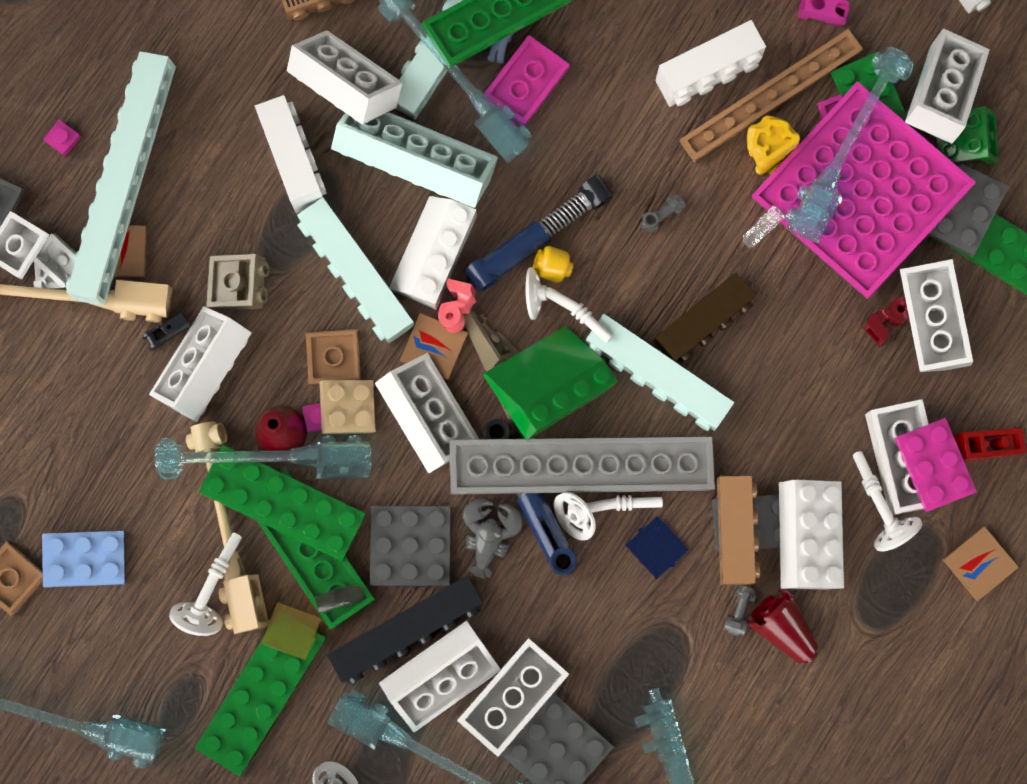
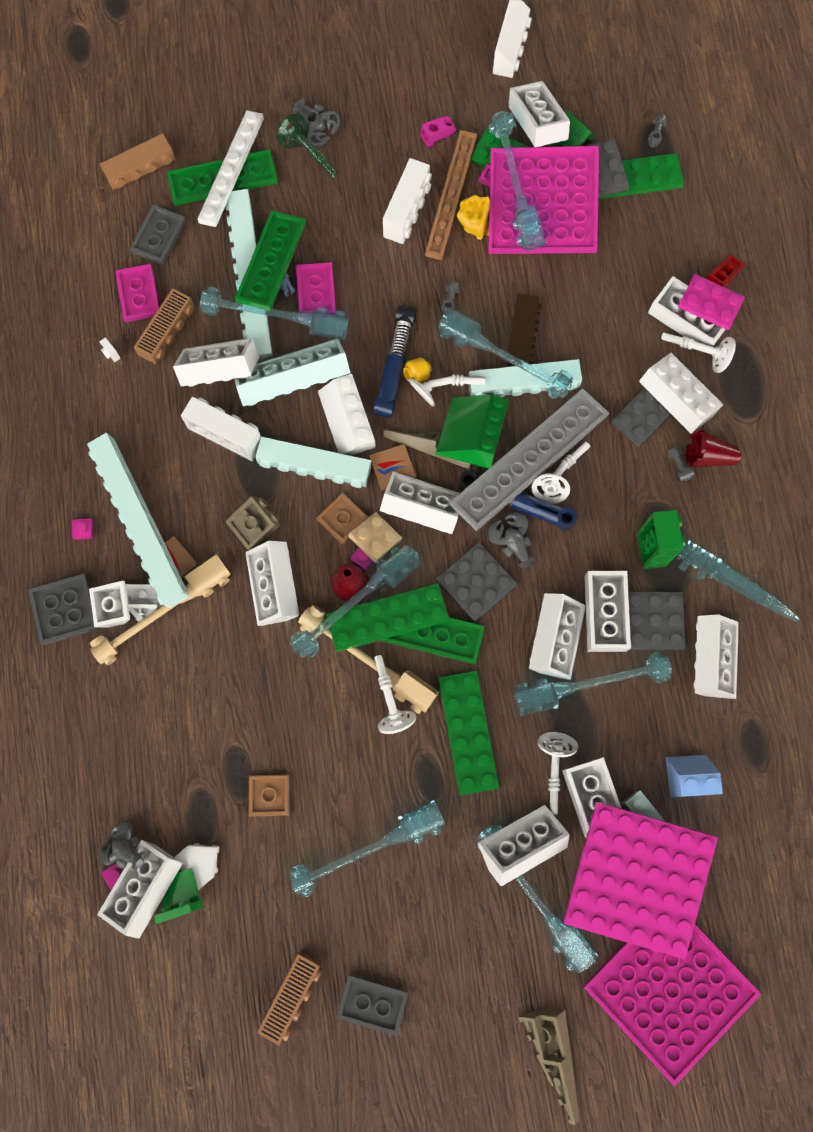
camera: 40 degrees left, 5 degrees down
(83, 559) = (302, 746): light blue plate -> none
(170, 329) = (237, 579): black bar -> none
(291, 631) = (455, 682): clear yellow piece -> none
(339, 598) = (465, 641): clear smoke bar -> none
(405, 629) = (516, 627): black brick -> none
(452, 313) = (387, 437): coral leg -> none
(630, 673) = (660, 539): none -> green brick
(643, 271) = (468, 333): none -> clear light blue bar
(656, 547) = (606, 470): clear blue piece -> none
(736, 530) = (642, 422): medium nougat brick -> none
(763, 226) = (509, 260): clear bar -> none
(894, 315) = (613, 261): dark red leg -> none
(936, 316) = (640, 230): white slope -> none
(980, 563) = (775, 337): medium nougat tile -> none

